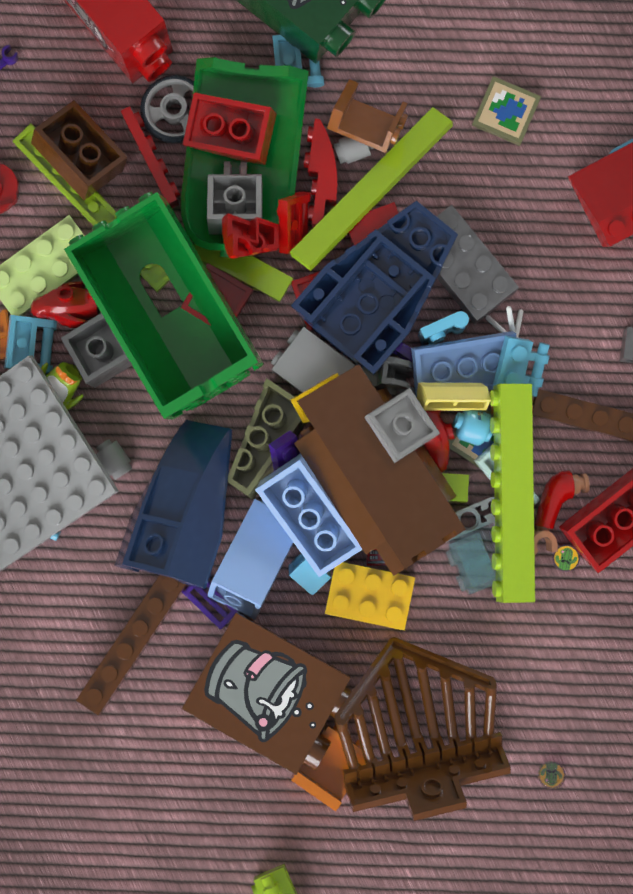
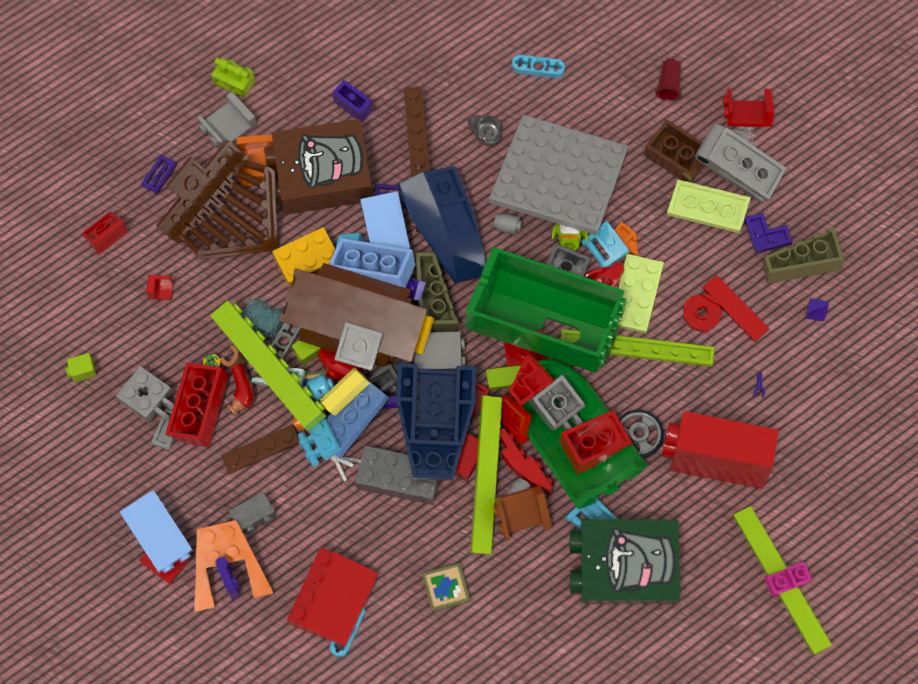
camera: 140 degrees right, 15 degrees down
(42, 581) = (487, 124): none -> flat silver piece
(79, 150) = (670, 365): reddish brown brick -> none
(146, 147) = (633, 398): red plate -> none
(167, 750) = (352, 101): none -> dark purple brick
(330, 844) = (227, 122): none -> light grey panel
(434, 850) = (151, 187): none -> dark purple tile
(436, 331) = (383, 424): medium azure plate -> none
(551, 775) = (132, 246): tile -> none
(559, 694) = (159, 287): none -> red panel
(571, 818) = (105, 232): none -> red slope

